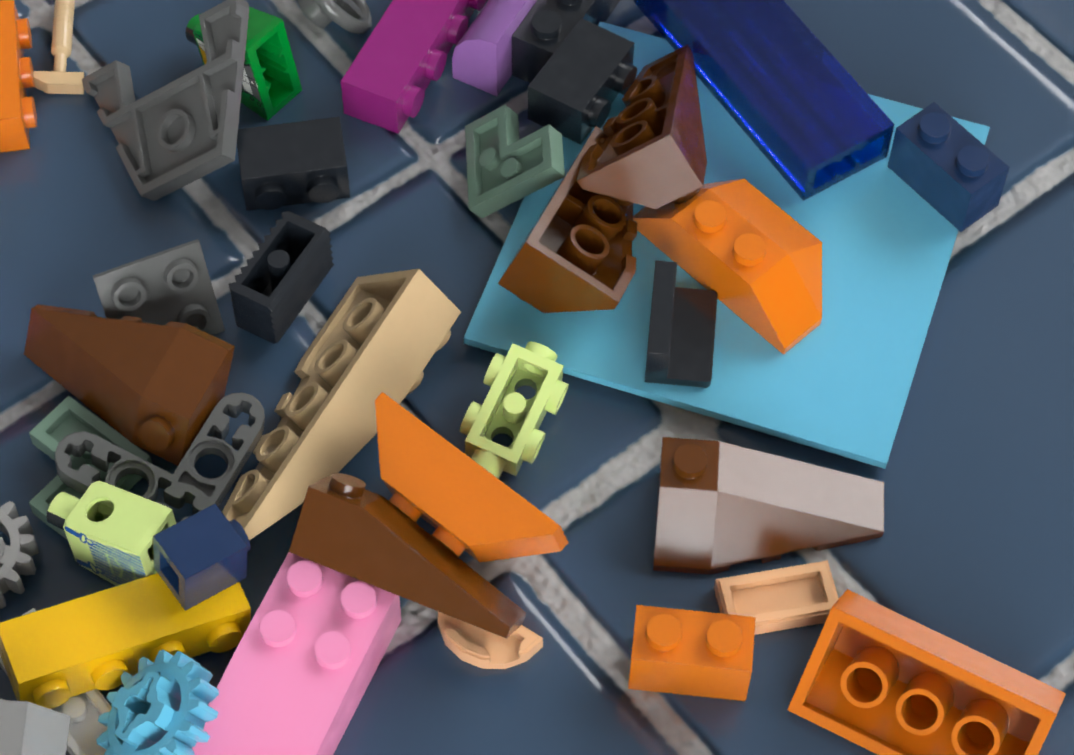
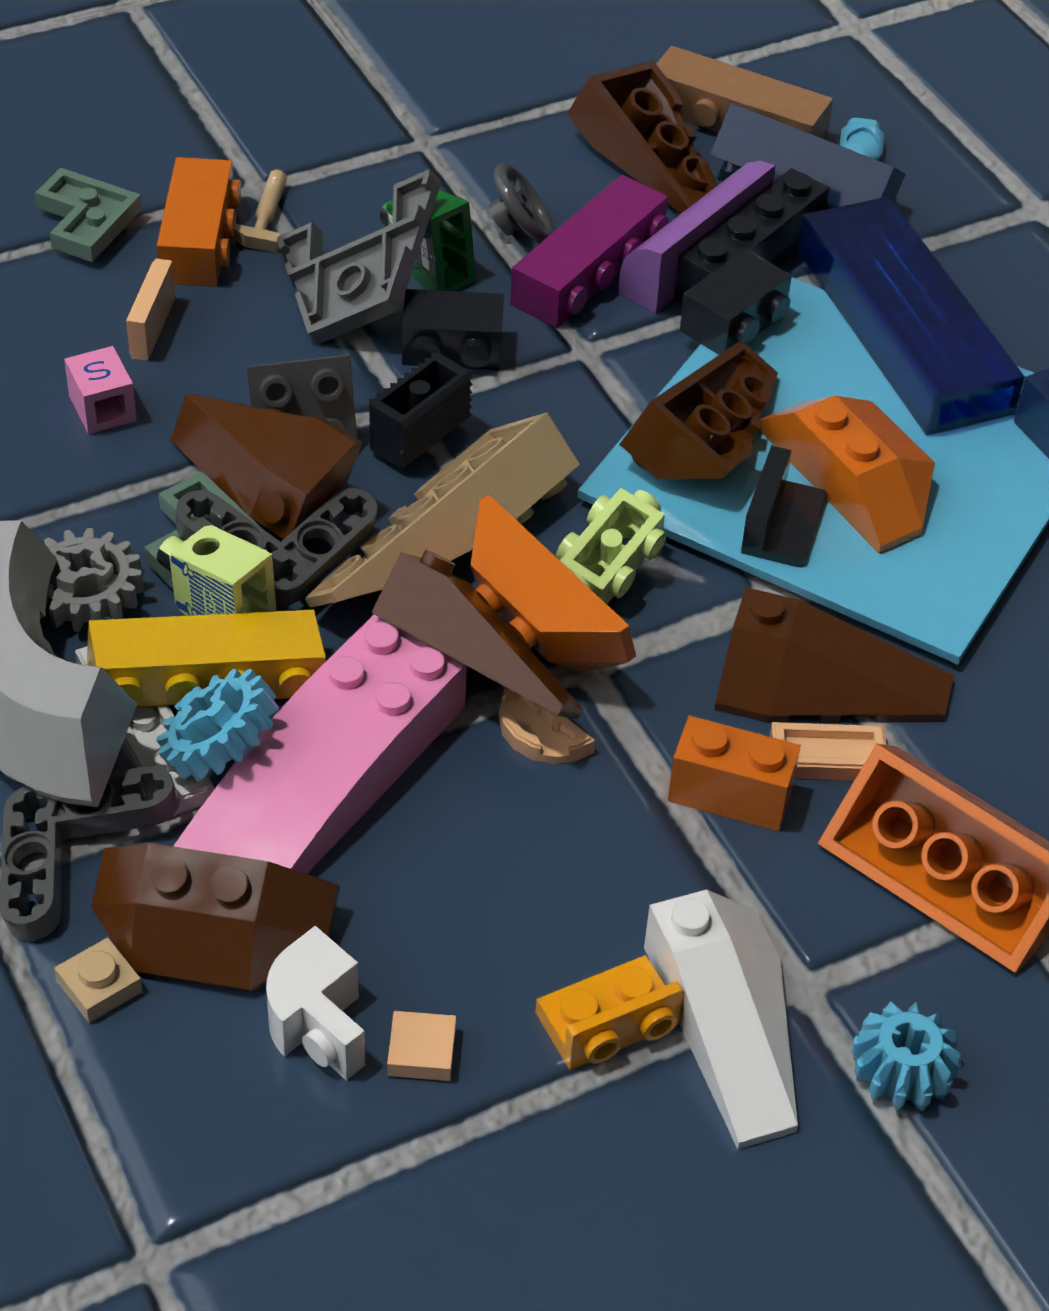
camera: 10 degrees right, 10 degrees down
(201, 556) = (289, 600): dark blue brick -> none
(507, 168) = (652, 357): sand green plate -> none
(656, 142) = (793, 357): reddish brown wedge -> none

